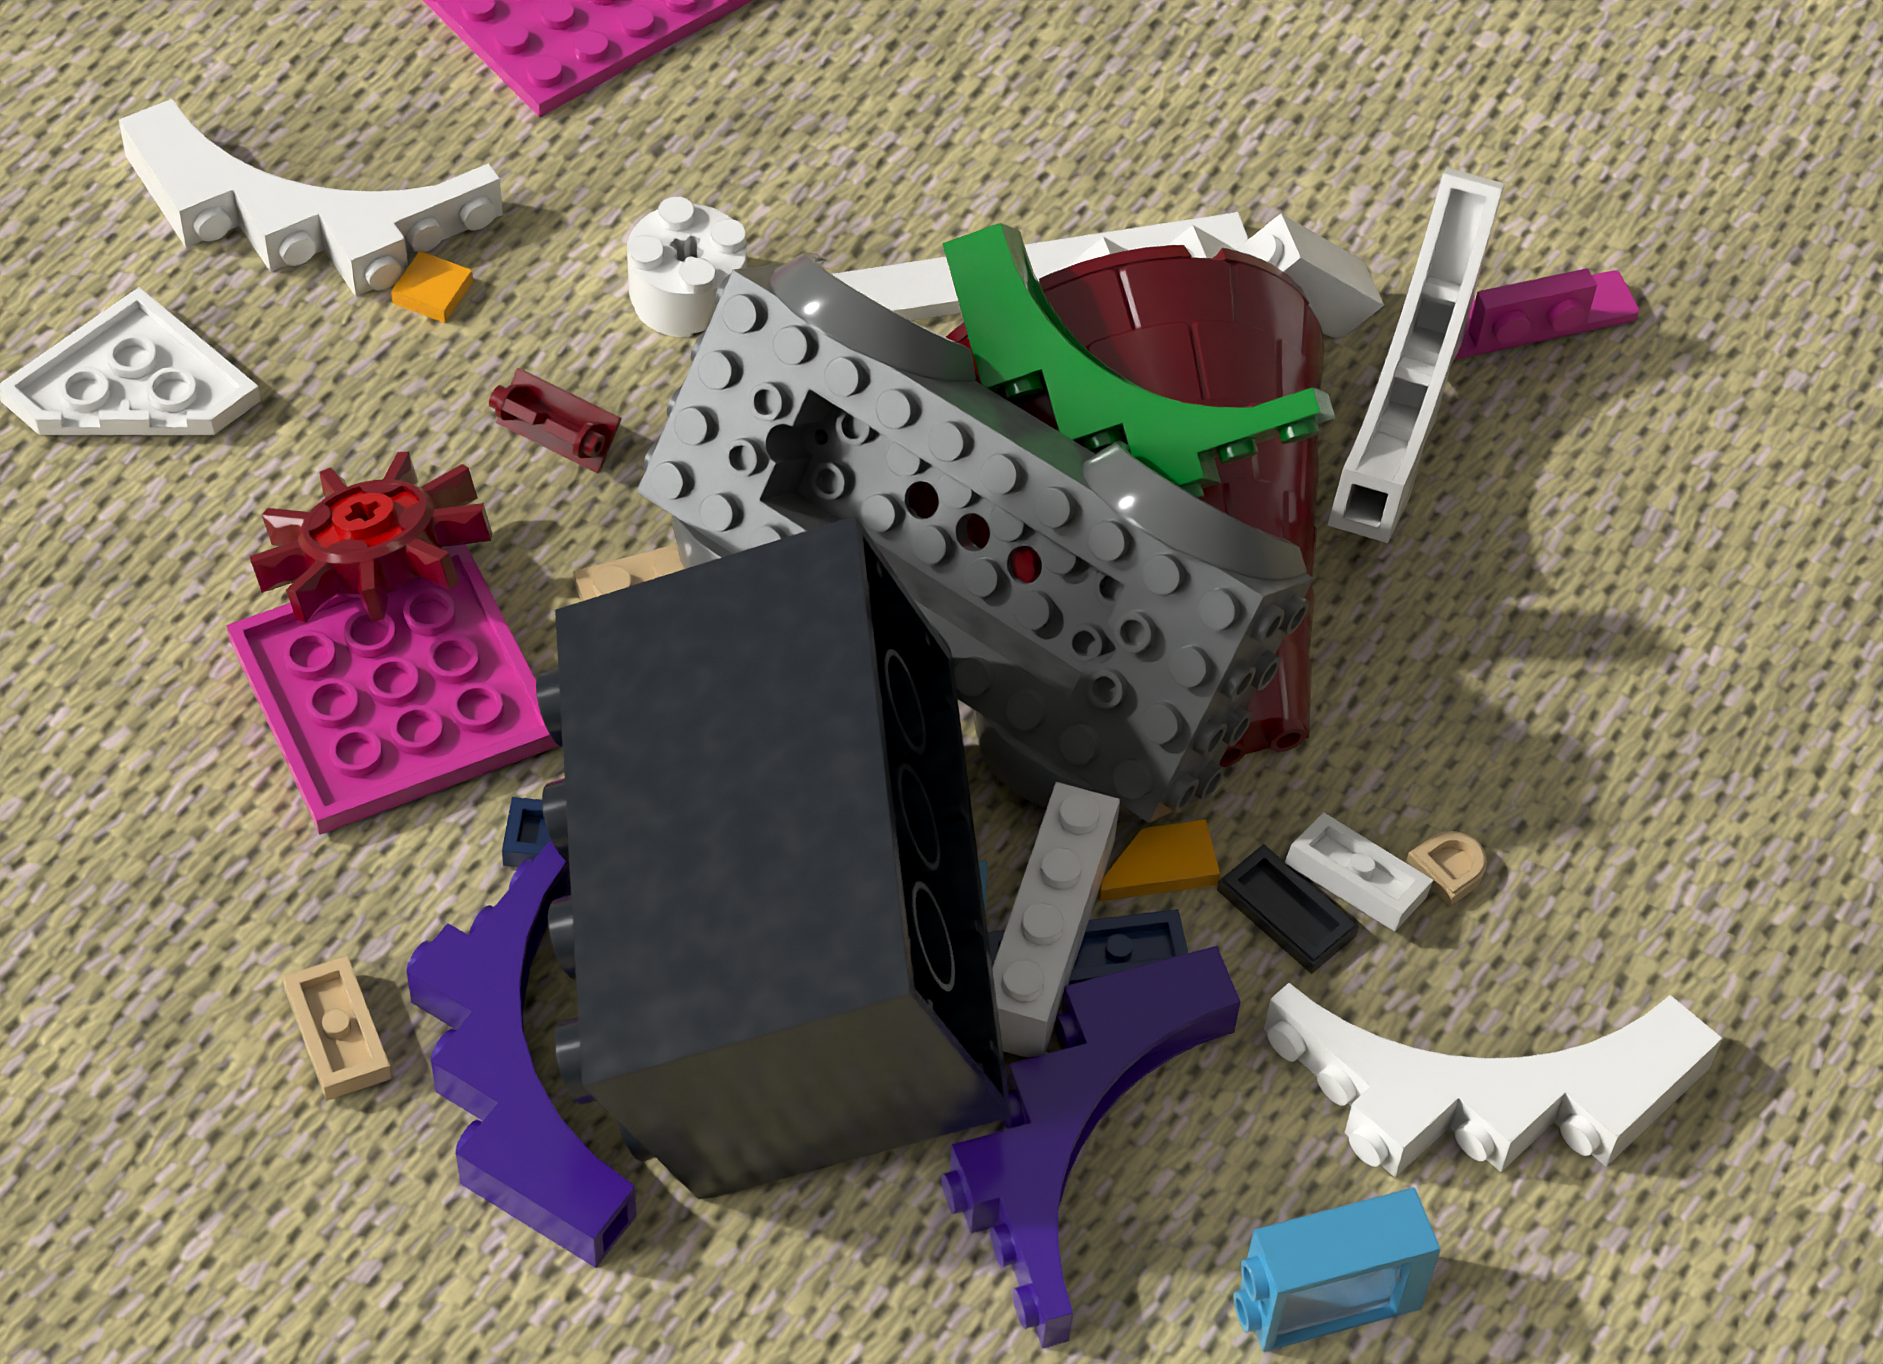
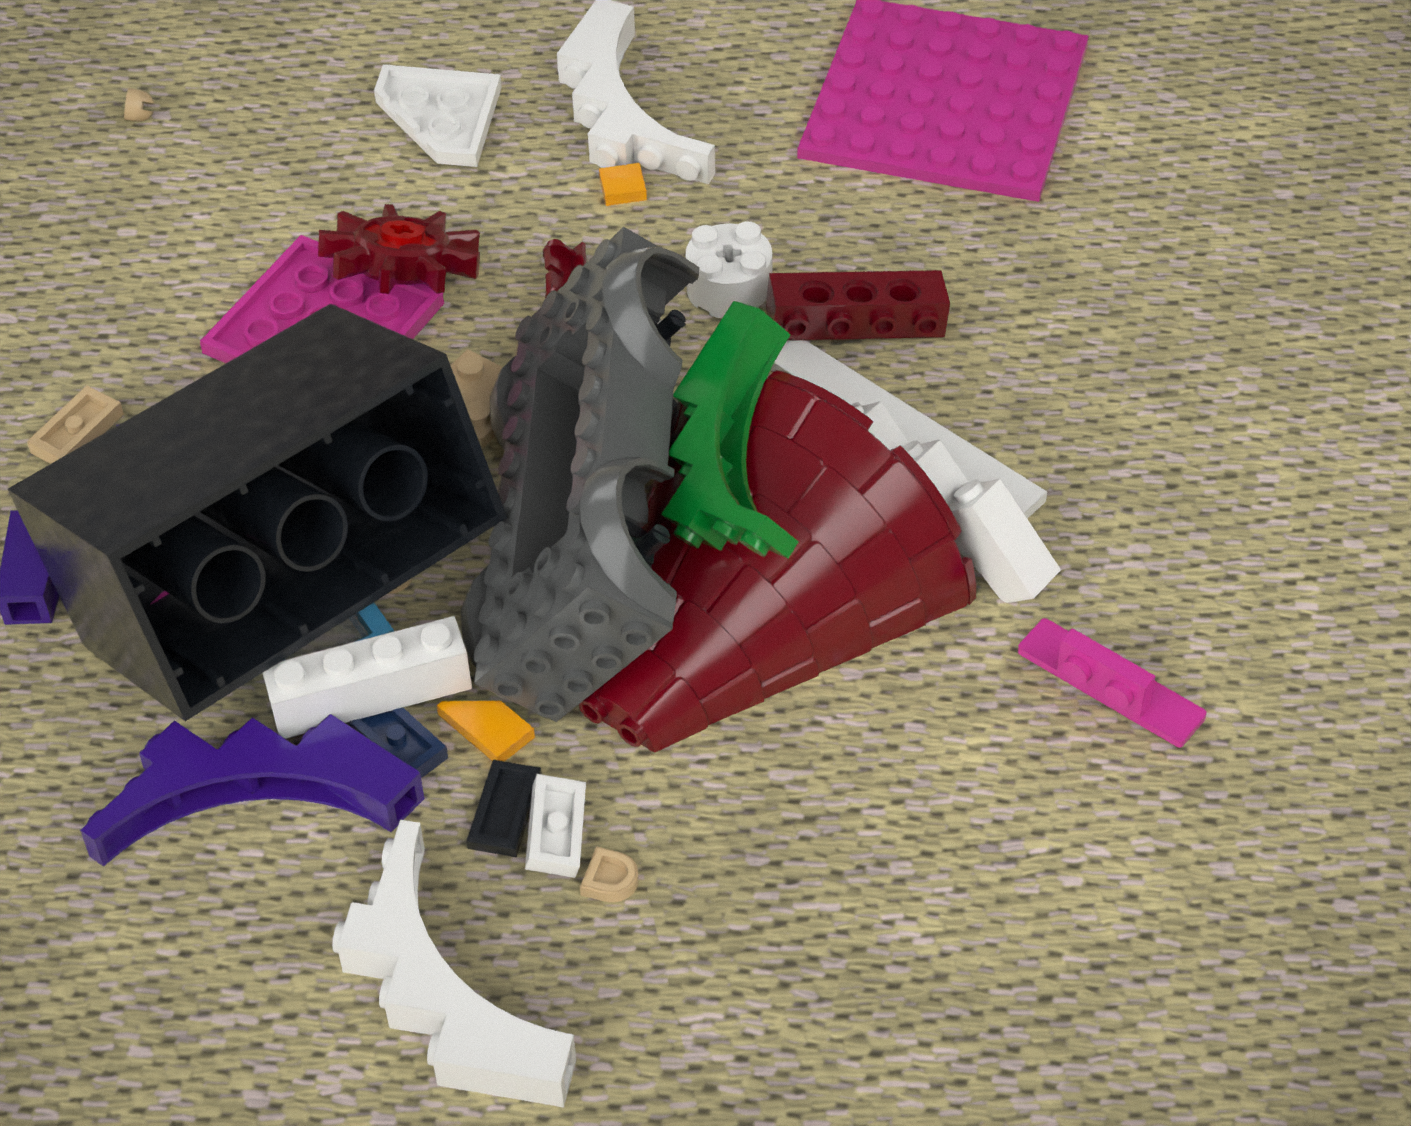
camera: 60 degrees right, 5 degrees down
(854, 188) = (859, 304): none -> dark red brick
(1337, 1270) = (216, 956): dark azure window -> none
(1416, 370) = (962, 643): white arch -> none

